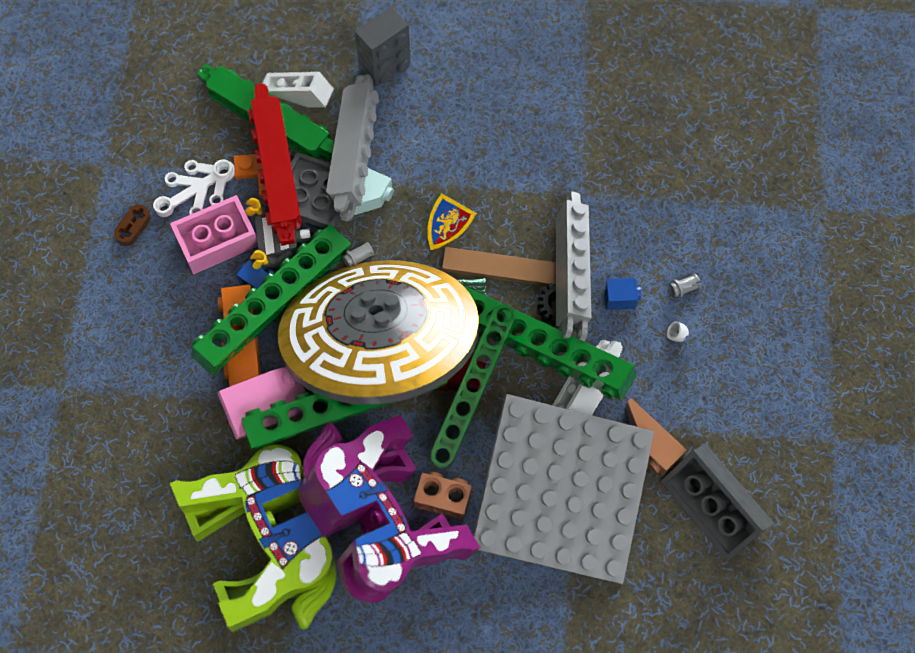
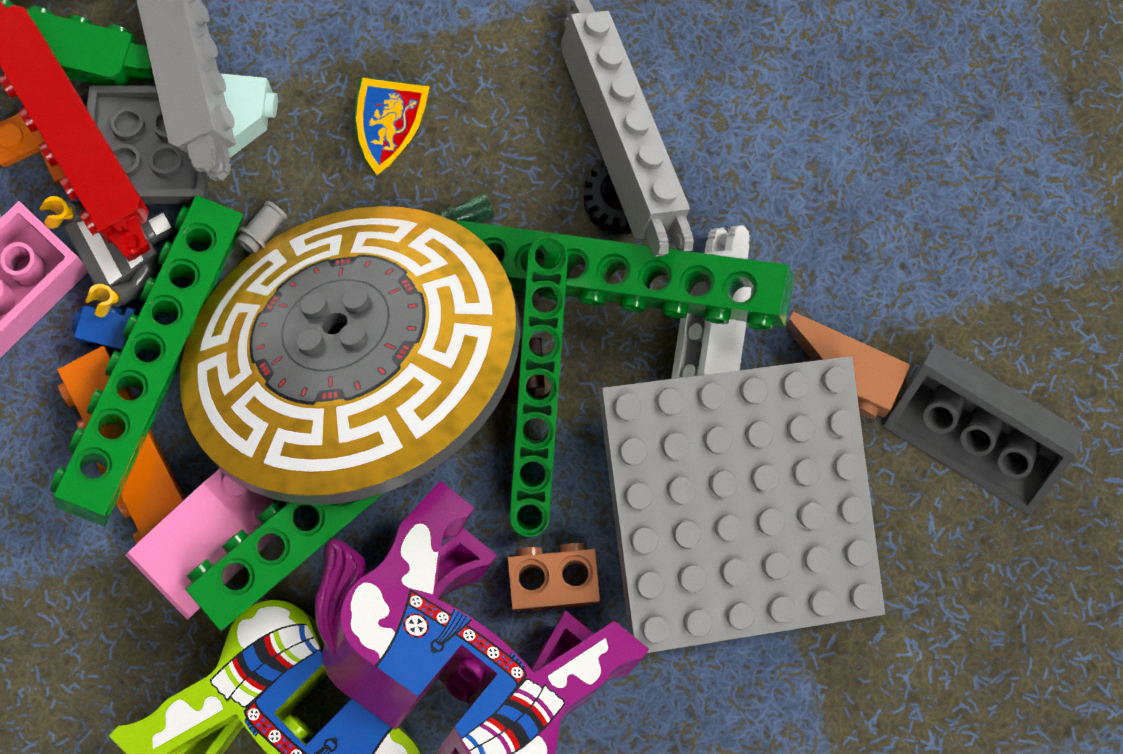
camera: 20 degrees left, 10 degrees up
(499, 266) = (500, 164): medium nougat tile -> none
(622, 293) = (714, 140): blue brick -> none
(672, 332) = (822, 180): white hinge -> none
(685, 285) = (811, 87): light grey pin -> none

